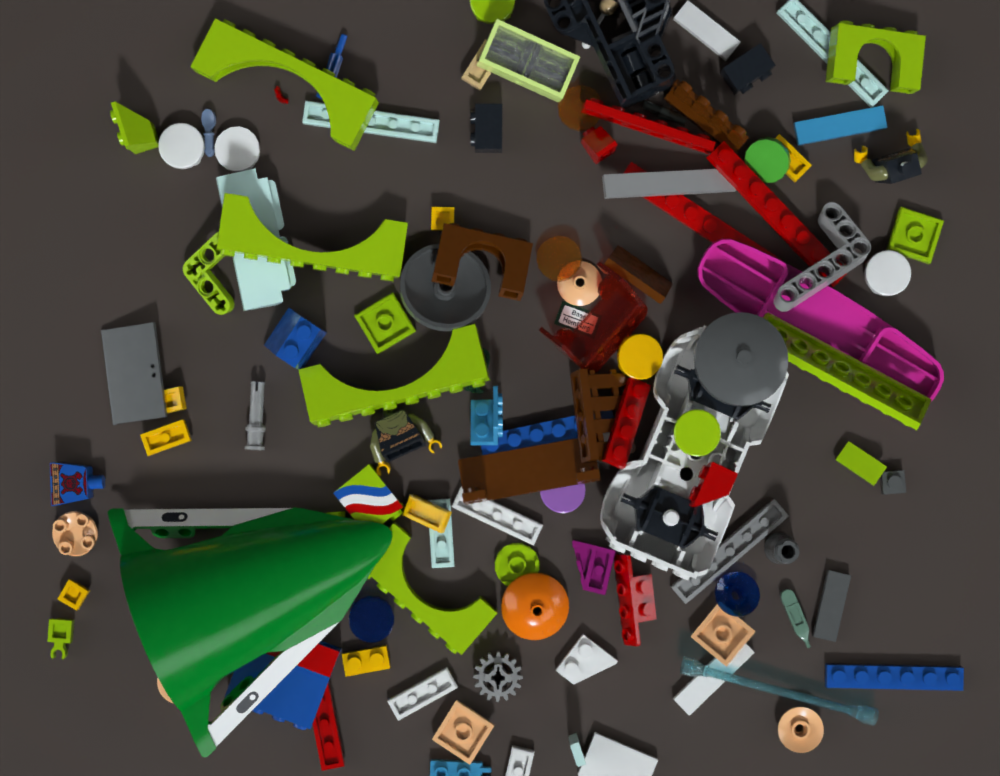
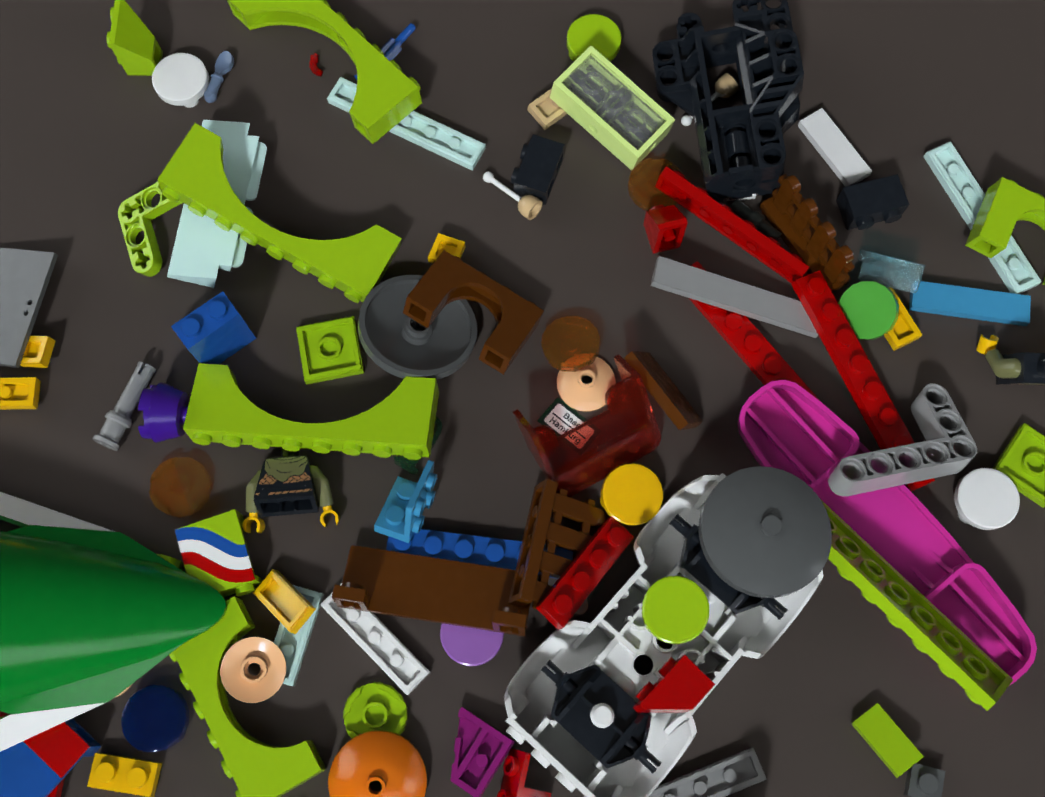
camera: 20 degrees right, 15 degrees down
(237, 149) = (242, 101): white tile -> none
(290, 413) = (163, 412): none -> dark purple cone
(319, 459) = (180, 486): none -> clear orange tile
(434, 573) = (236, 674): none -> light nougat dish
(490, 160) = (528, 205): none -> tan hinge
(775, 121) = (890, 271): none -> clear light blue bracket

